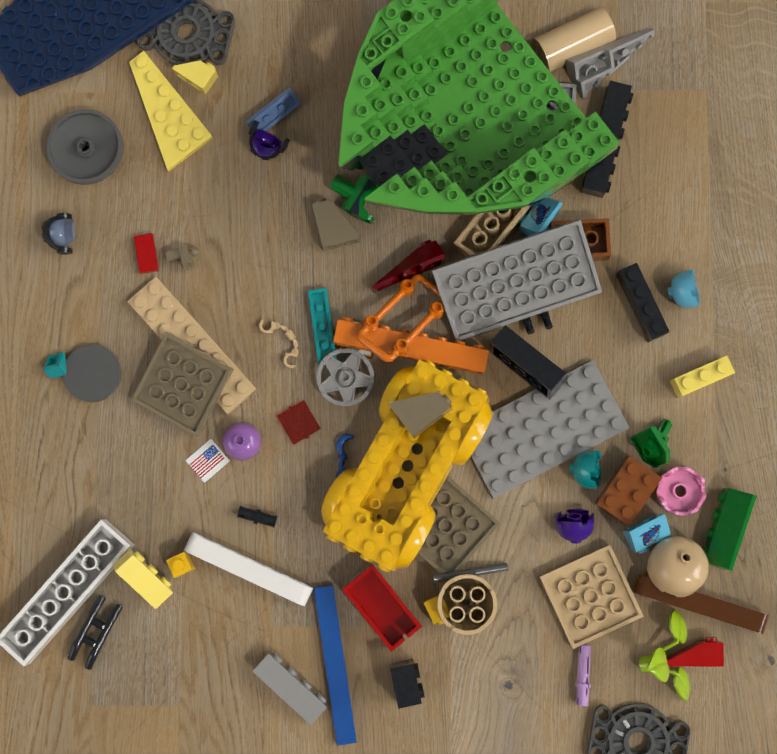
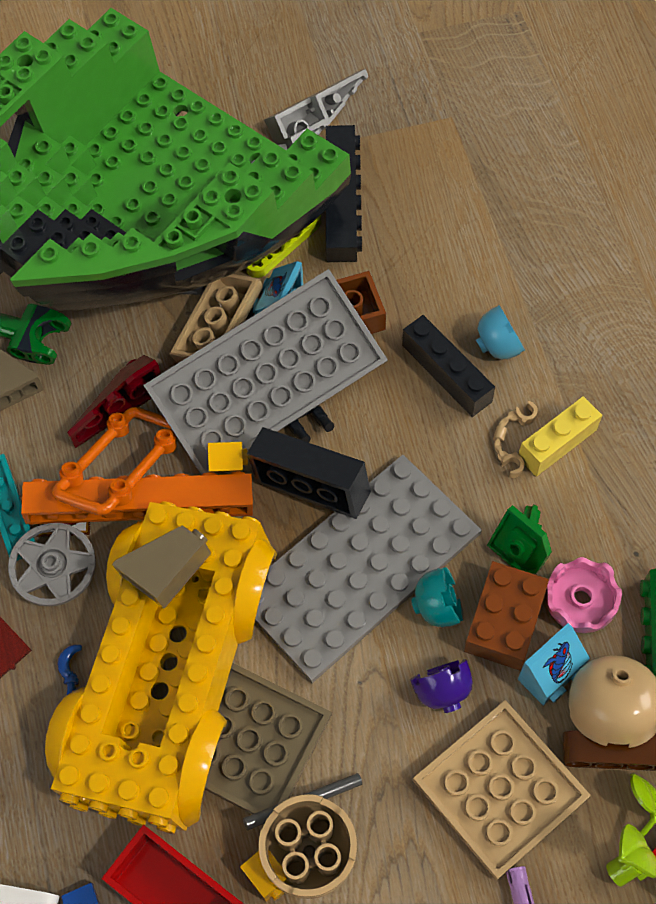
camera: 15 degrees left, 20 degrees down
(475, 334) = (226, 457): none -> yellow brick
(575, 38) = (273, 93): tan brick -> none
(662, 362) = (500, 433): none -> tan piece

